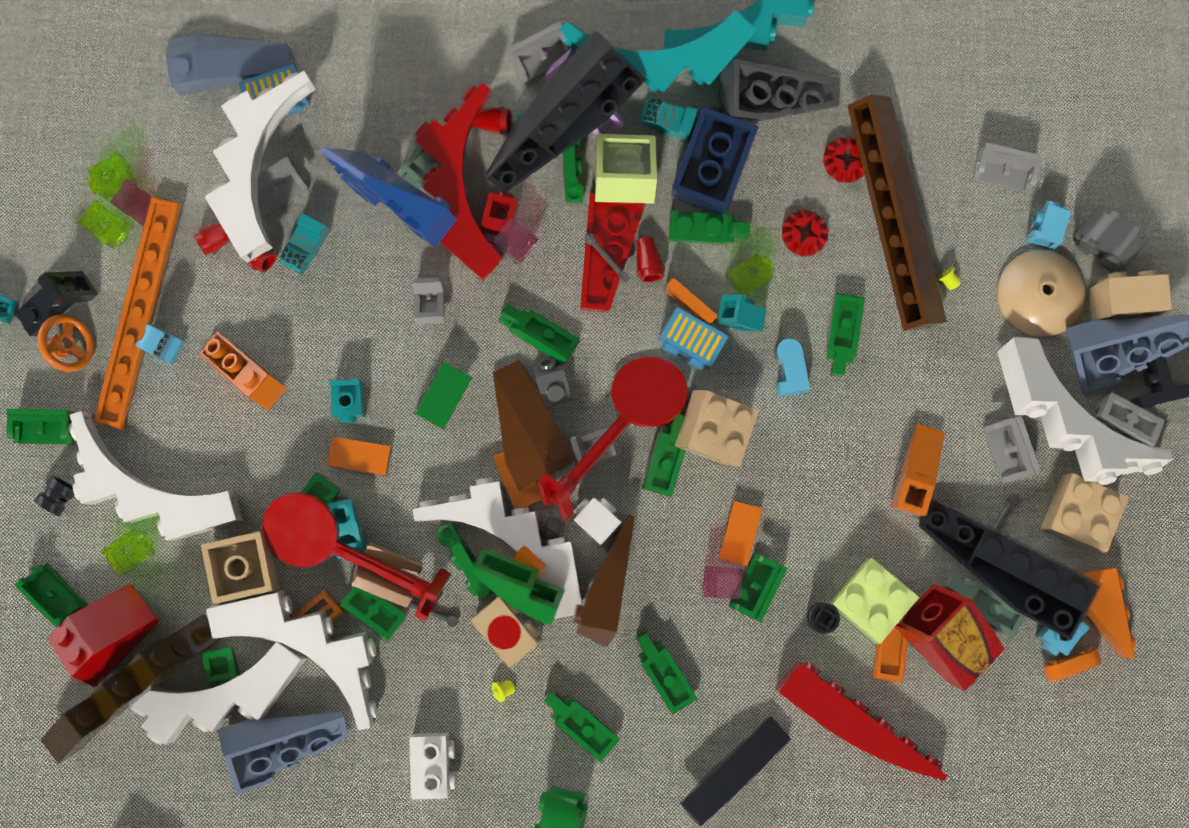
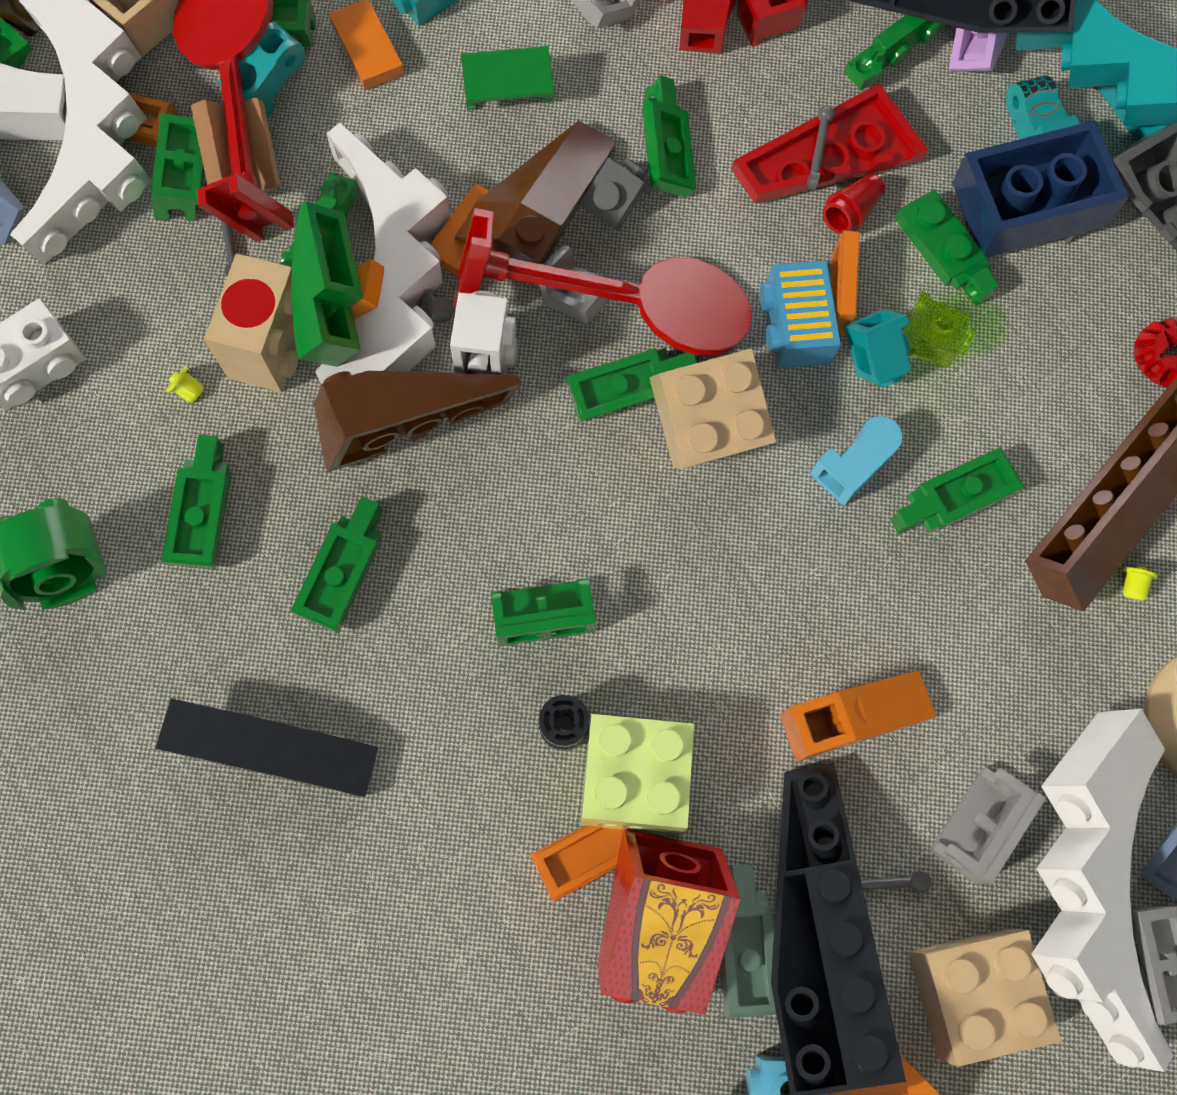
camera: 45 degrees right, 10 degrees down
(514, 241) = (754, 38): clear pink panel -> none
(625, 168) = (942, 93): yellowish green piece -> none
(722, 582) = (515, 552): clear pink panel -> none
(740, 533) = (598, 541): orange tile -> none
(810, 245) = (1032, 379): red gear -> none
(851, 722) = (443, 870): red slope -> none

